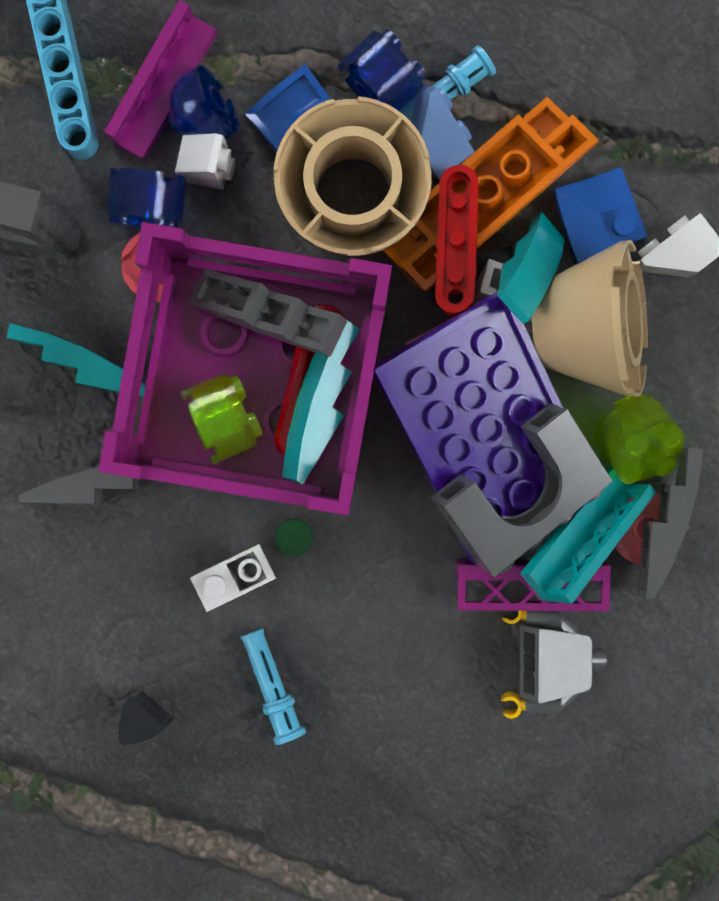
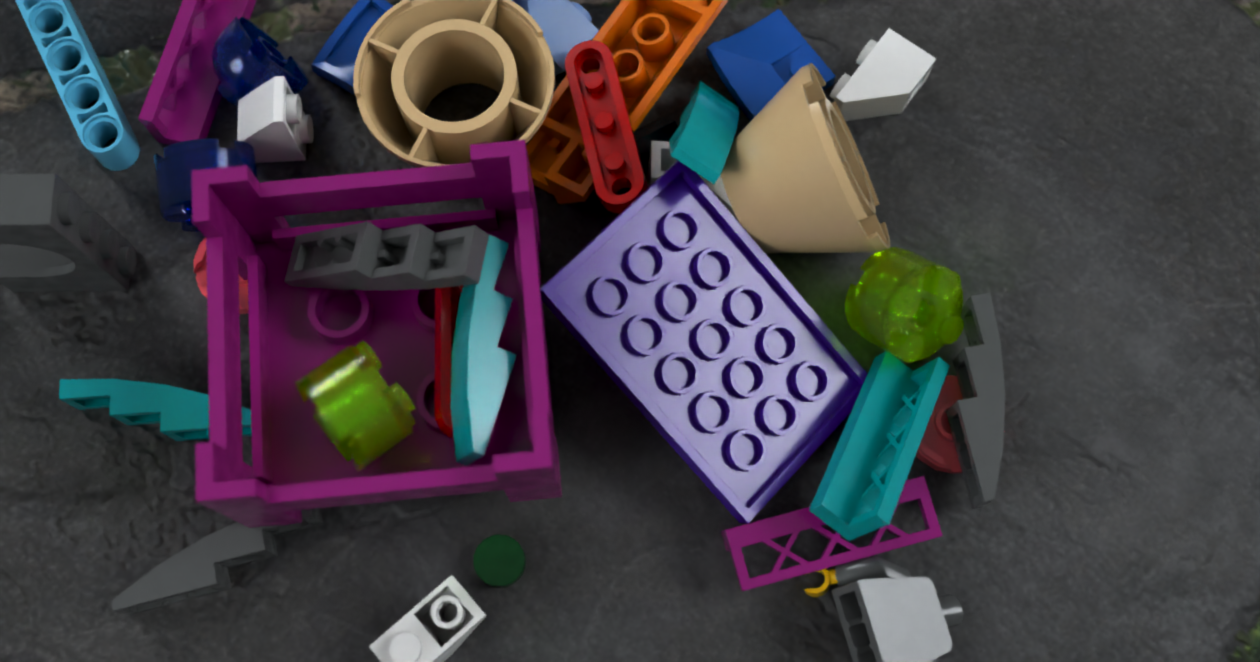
camera: 15 degrees left, 15 degrees down
(571, 481) = (837, 375): dark grey arch -> none

